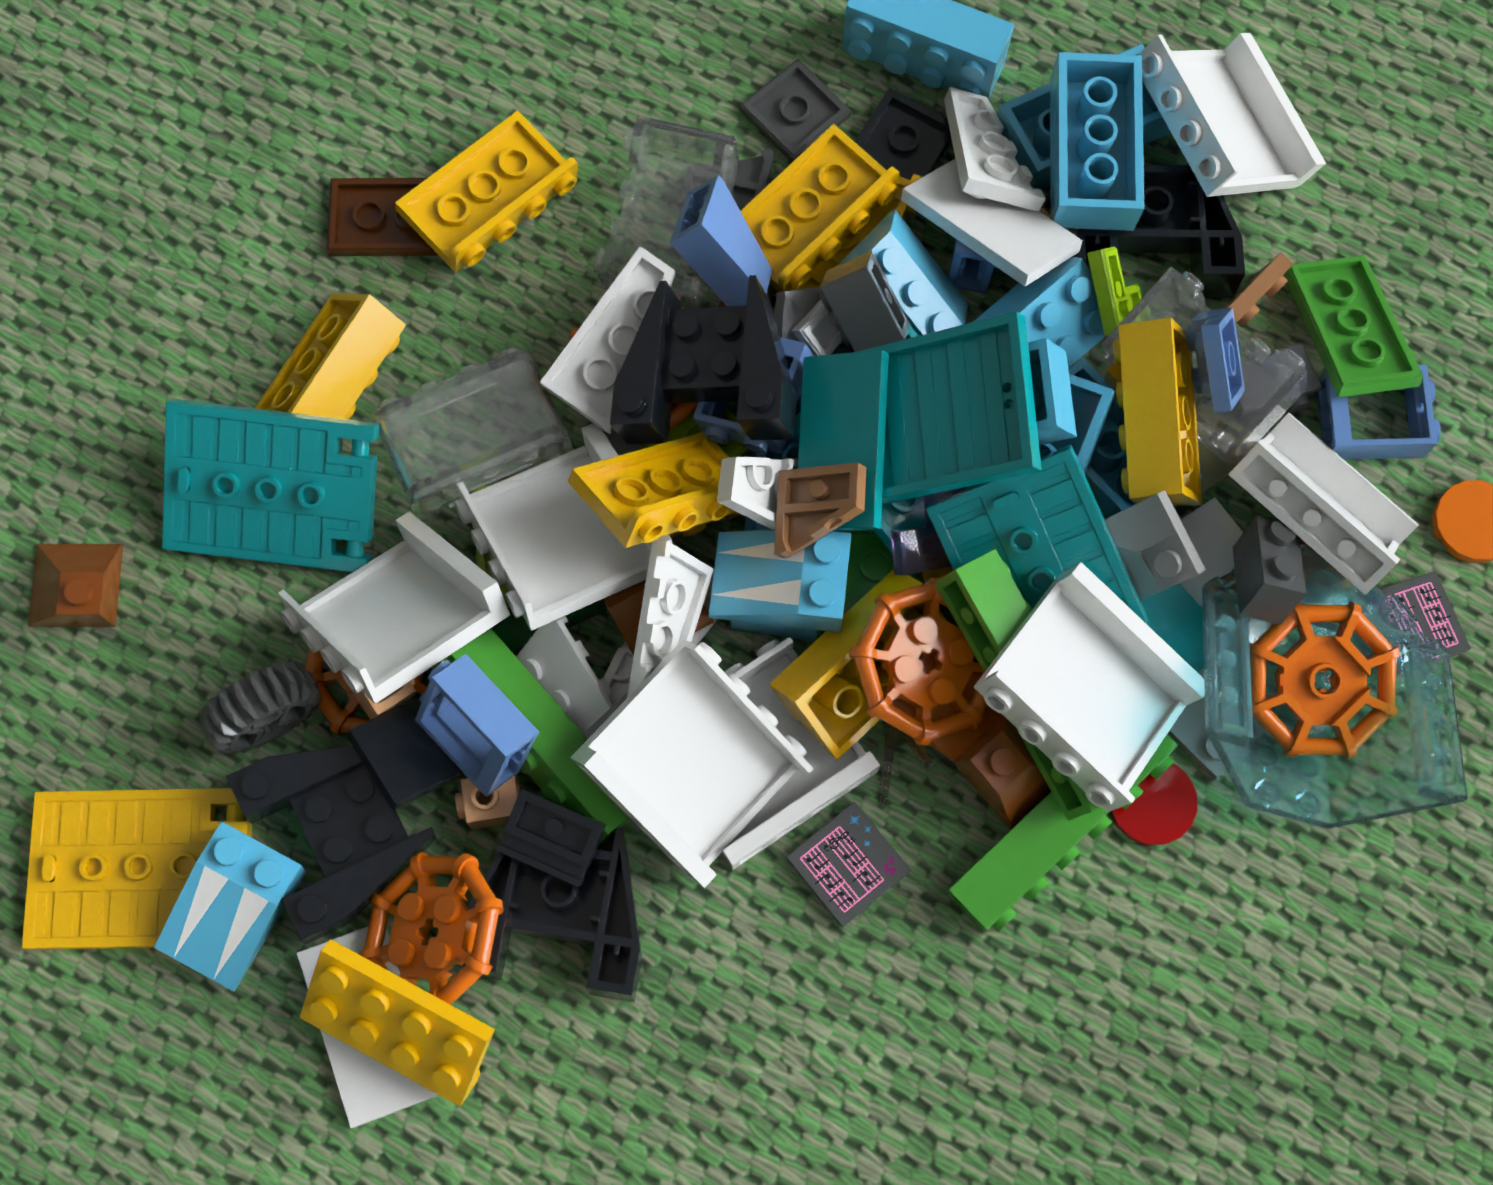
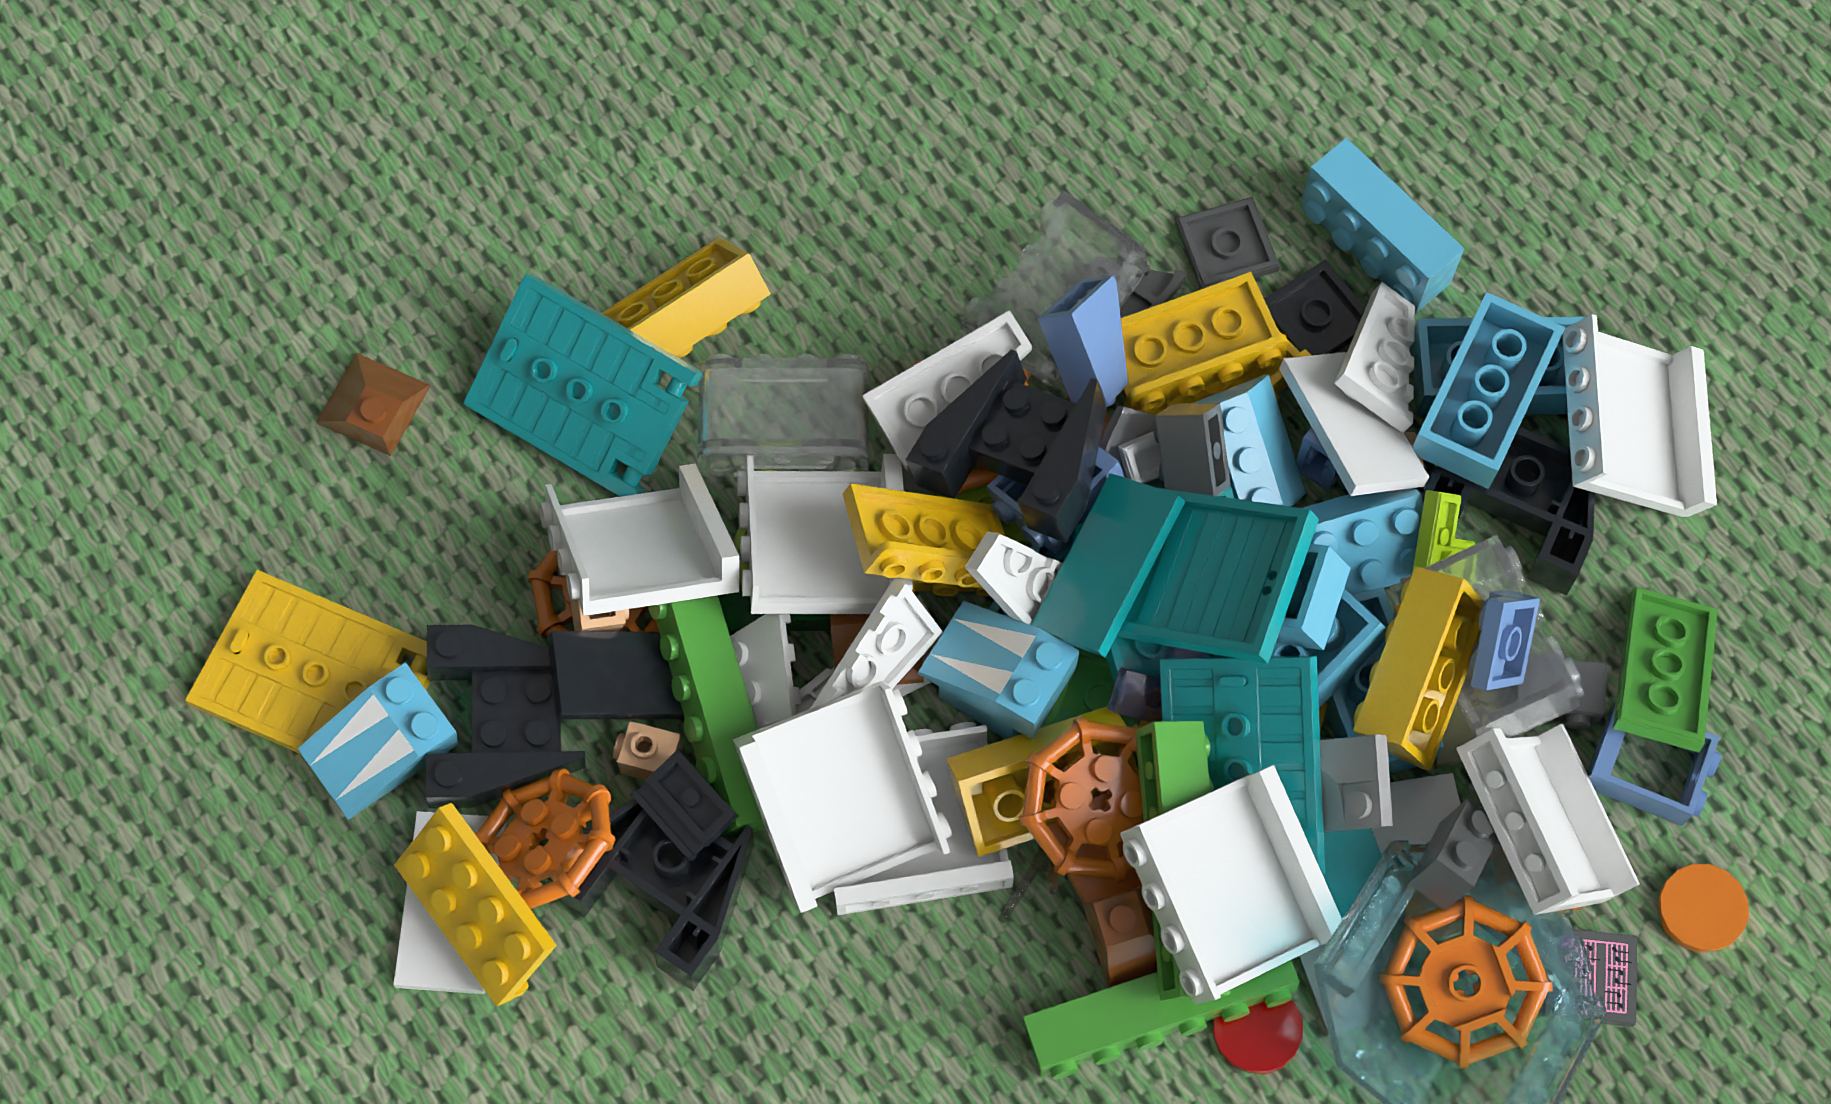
camera: 25 degrees right, 5 degrees down
(260, 707) = (484, 580): dark grey gear -> none
(366, 222) = (803, 189): reddish brown tile -> none
(475, 724) = (663, 675): medium blue window -> none
(487, 192) = (902, 203): yellow bracket -> none
(815, 503) = (1056, 609): medium nougat wing -> none
(848, 864) = (945, 957): dark grey tile -> none
(1265, 281) = (1595, 591): medium nougat wing -> none

